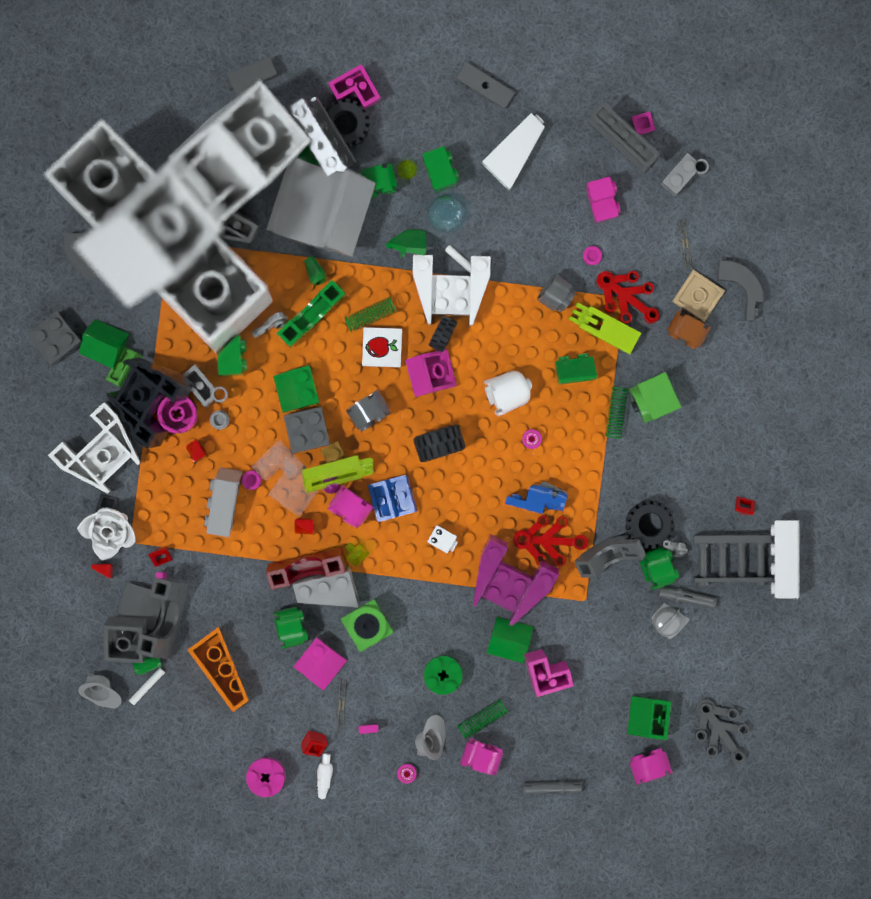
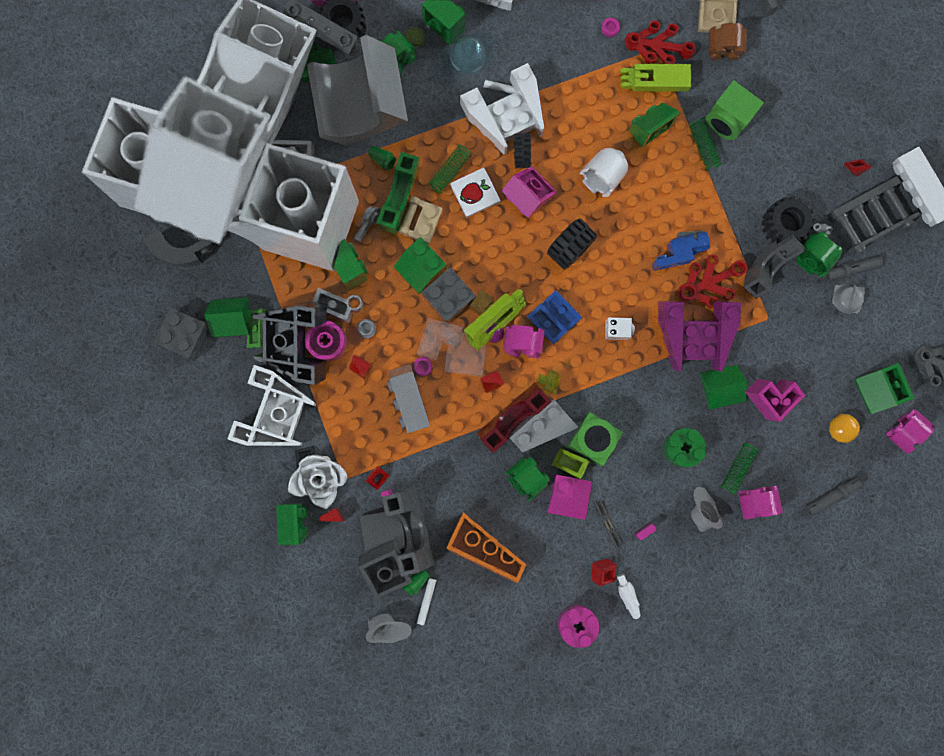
camera: 35 degrees left, 5 degrees down
(64, 557) = (291, 524): none -> green slope
(322, 352) = (426, 222): none -> tan plate
(335, 634) = (570, 463): none -> lime slope
(367, 410) = (493, 249): dark grey brick -> none
(406, 773) = (699, 554): dark pink tile -> none
(409, 241) = (450, 89): green slope -> none
(531, 439) = (646, 203): dark pink tile -> none
(556, 293) = (600, 68): dark grey piece -> none
(597, 733) = (844, 428): none -> light orange hair

